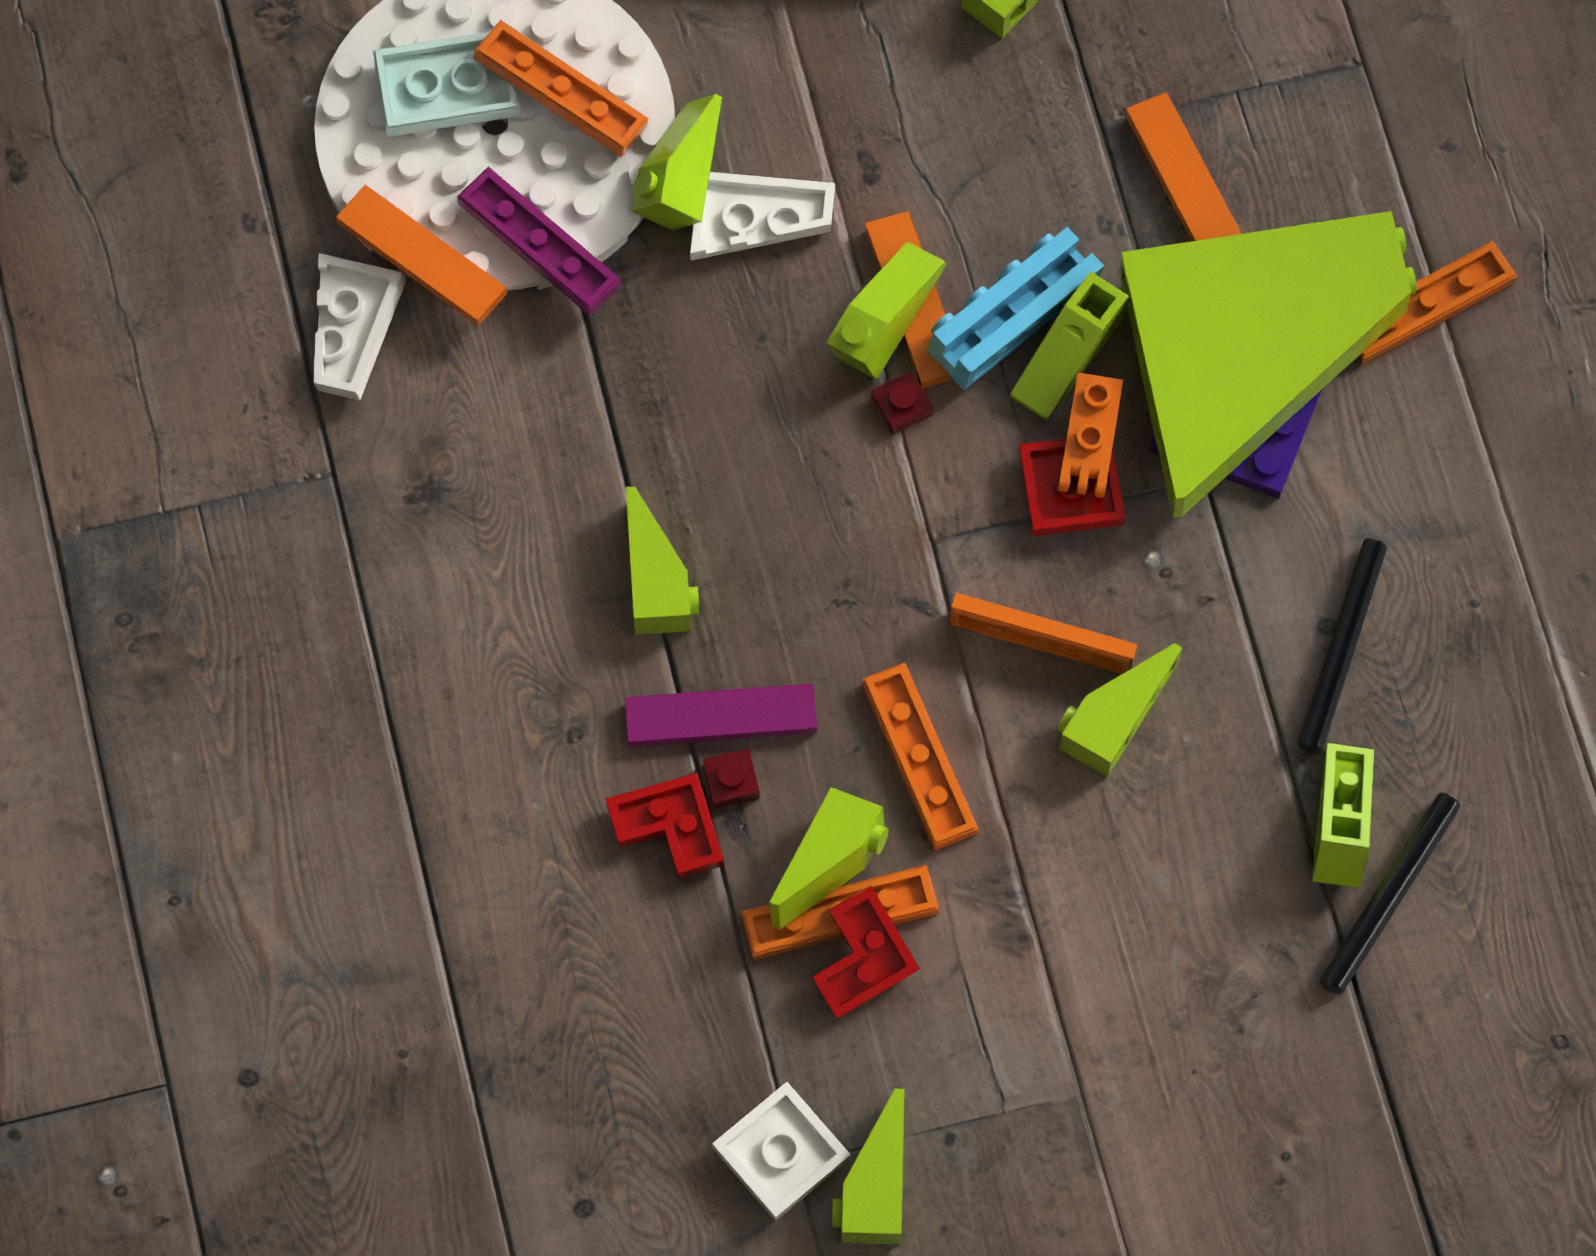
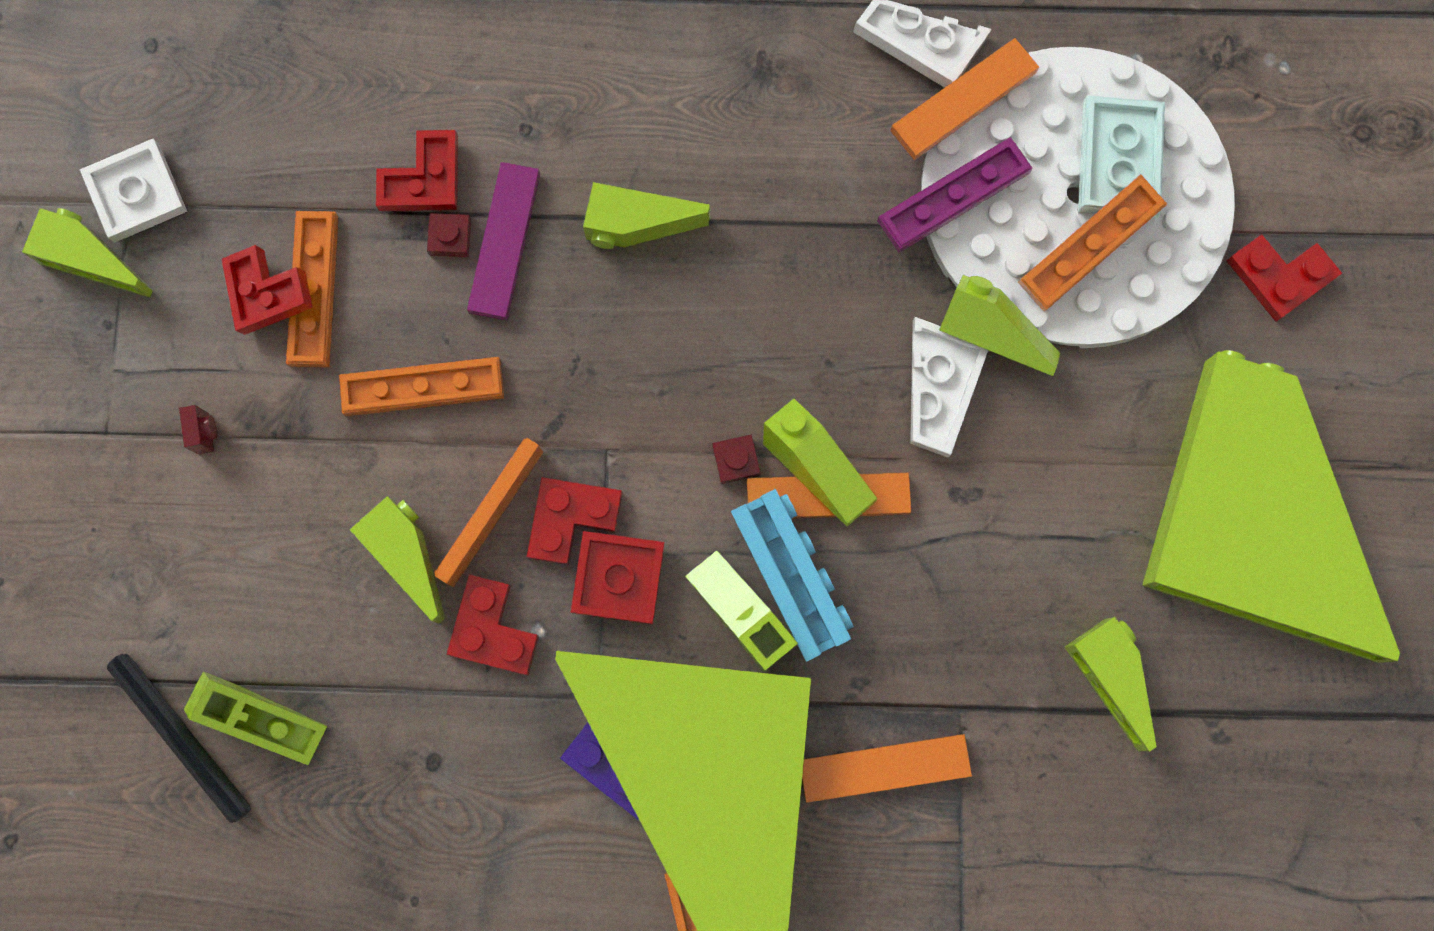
camera: 105 degrees right, 10 degrees up
(830, 854) = (356, 291): lime slope -> none
(1012, 567) = (562, 508): none -> red plate
(1046, 976) = (197, 429): none -> dark red plate
(1091, 432) = (653, 603): orange hinge -> none
(1177, 612) = (479, 633): none -> red plate
(1342, 645) = (407, 768): black axle -> none

